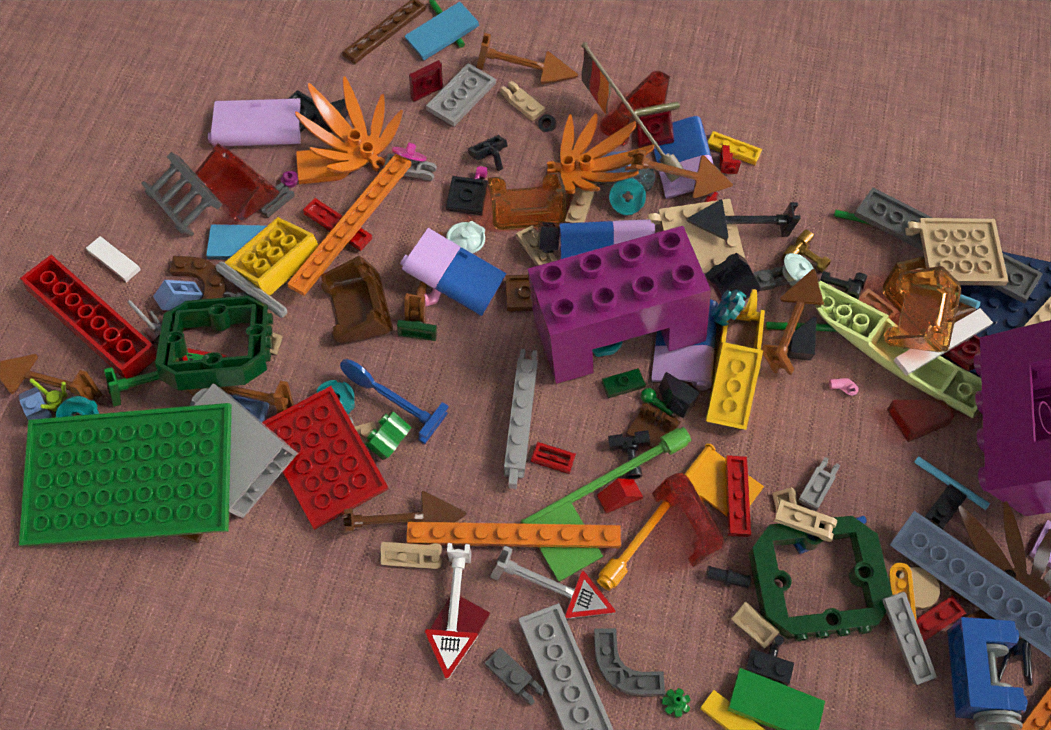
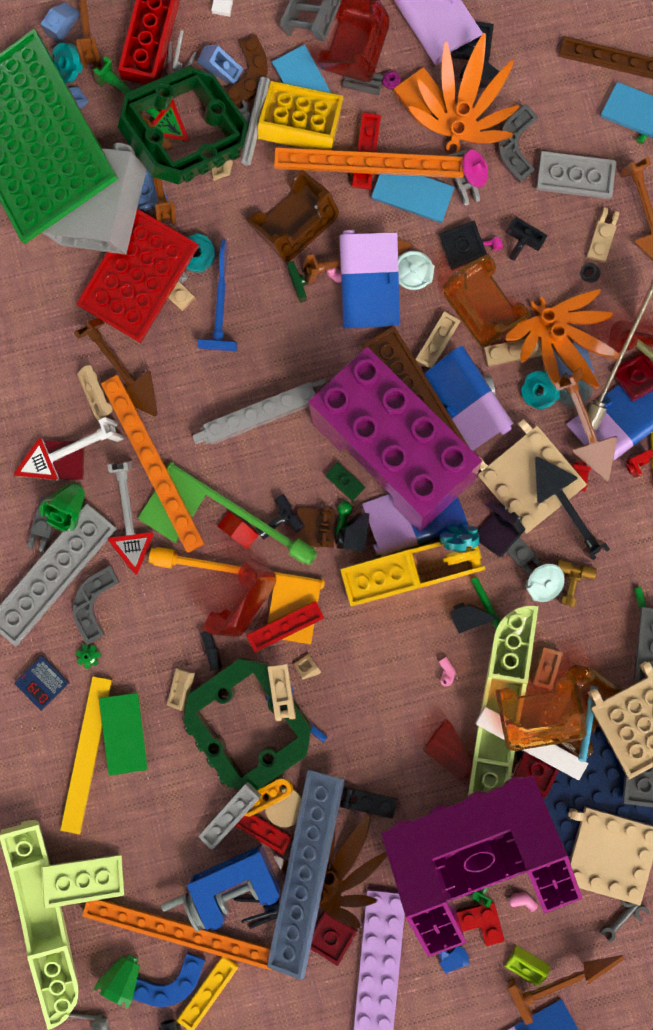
camera: 65 degrees right, 25 degrees up
(54, 397) = (72, 31): lime plant -> none
(388, 435) = (184, 315): green brick -> none
(399, 210) = (414, 194): none -> dark azure tile
(410, 127) = (509, 149): none -> dark grey plate
(426, 81) = (567, 134): dark red tile -> none
(513, 640) = (63, 507): none -> green cone
(548, 236) = (451, 340): black slope -> none
(550, 464) = (245, 474): red tile -> none
(770, 665) = (155, 715): black plate -> none
(803, 292) = (514, 597): dark orange piece -> none
(818, 486) = (334, 689): light grey hinge -> none
(853, 287) = (555, 637): black bar -> none
(948, 480) = (401, 792): medium azure bar -> none

